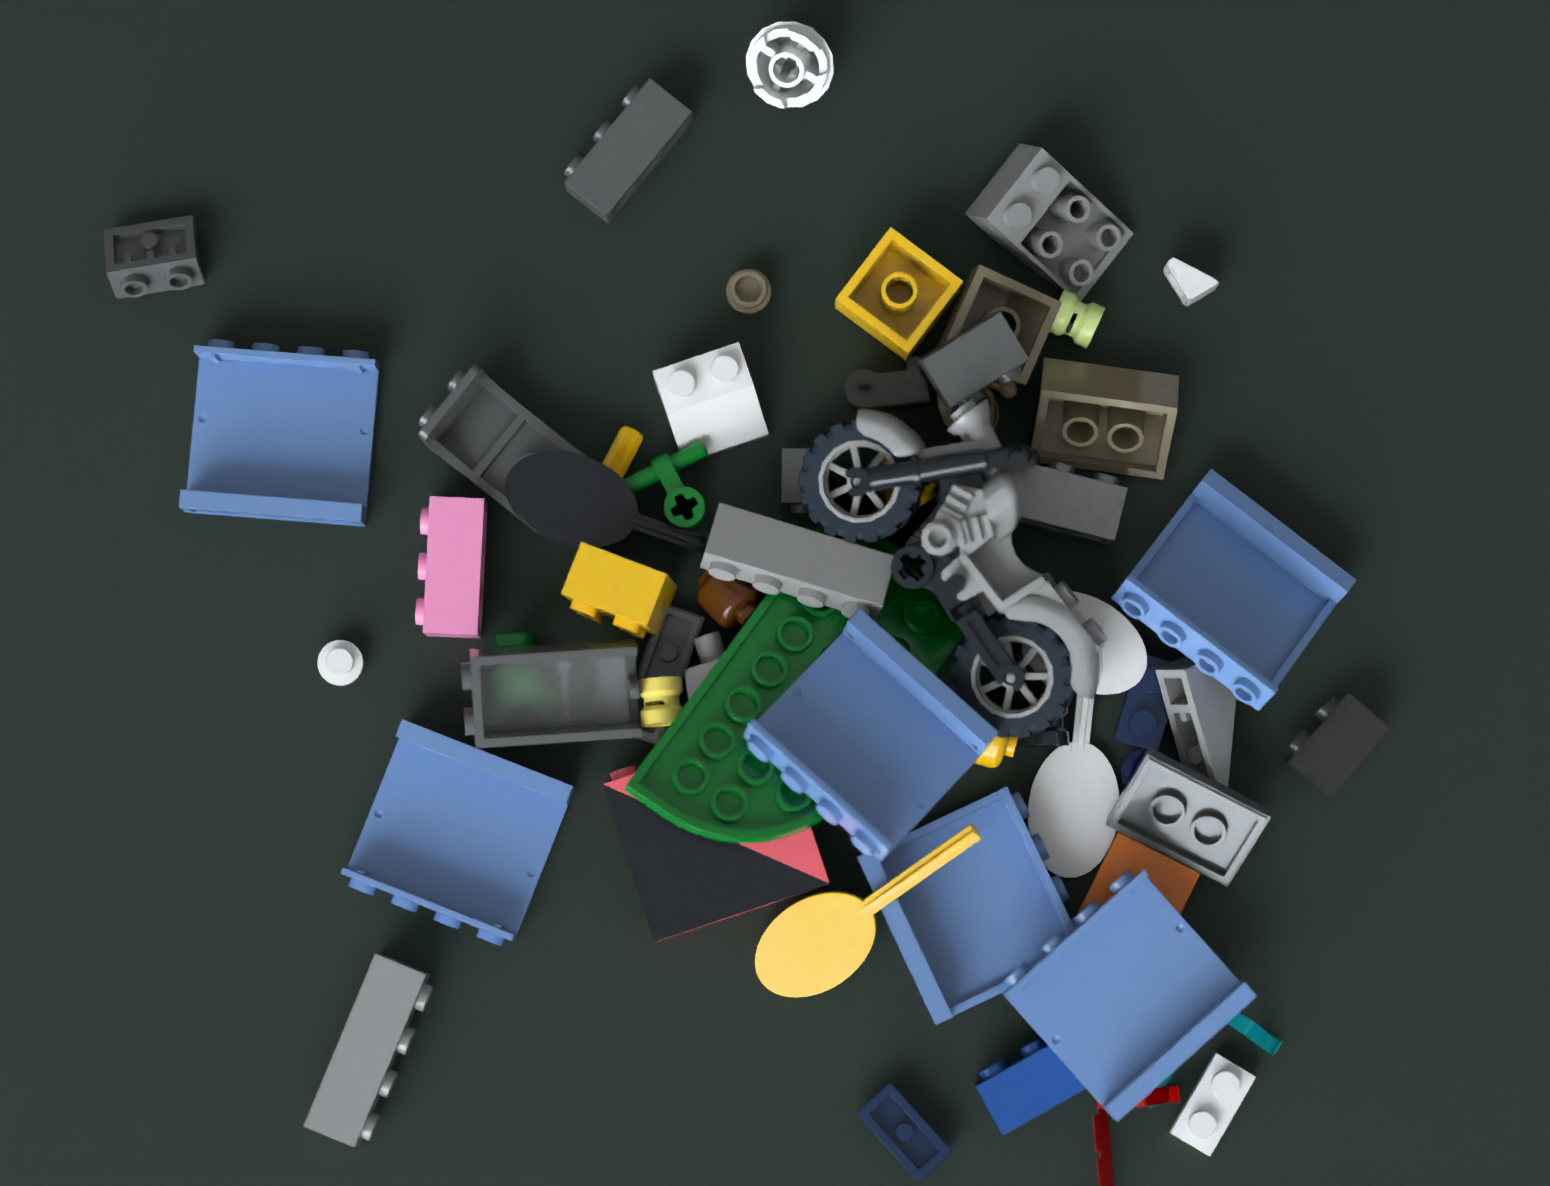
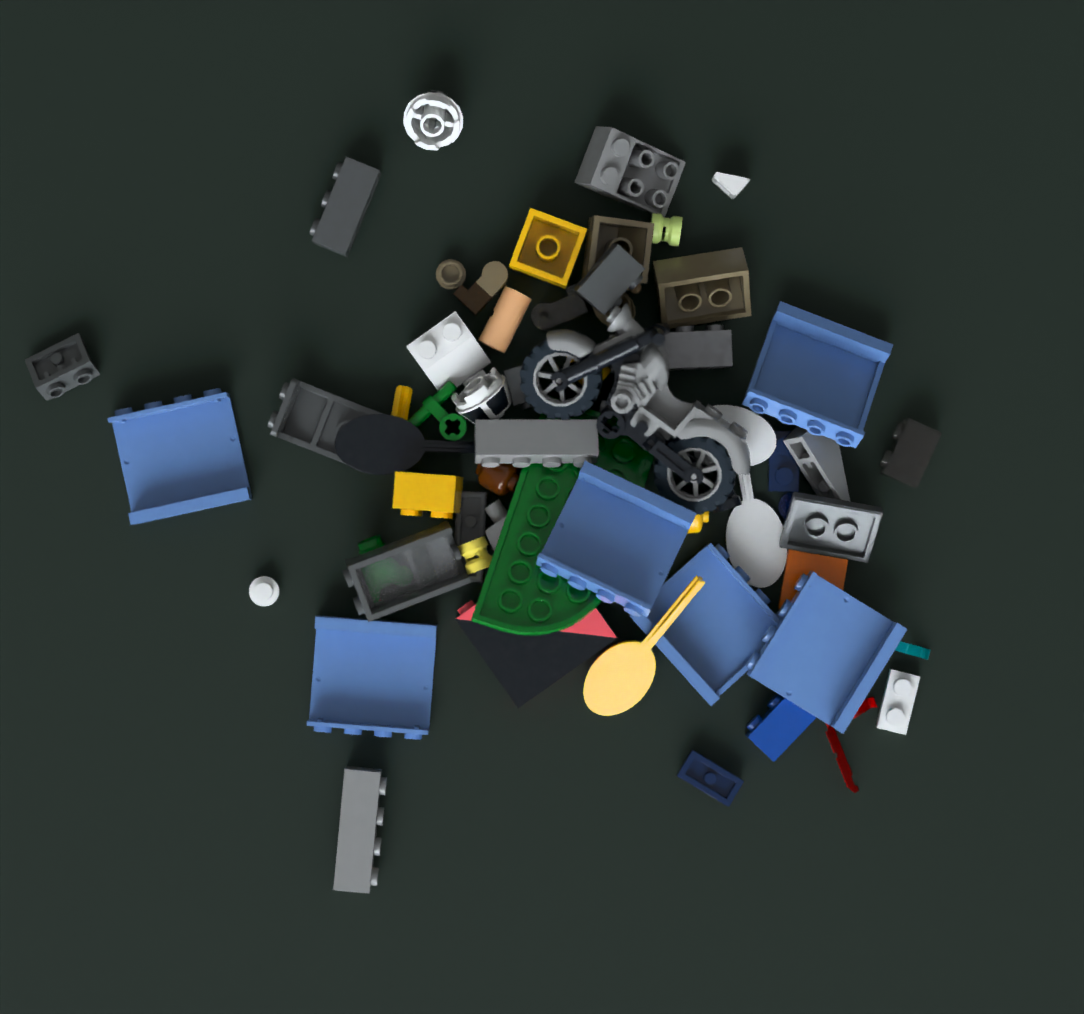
camera: 20 degrees left, 5 degrees up
(452, 567) = (316, 509): bright pink brick -> none
(742, 477) = (483, 396): none -> white cone
(791, 325) = (485, 288): none -> leg
(806, 378) = (505, 319): none -> light nougat pin

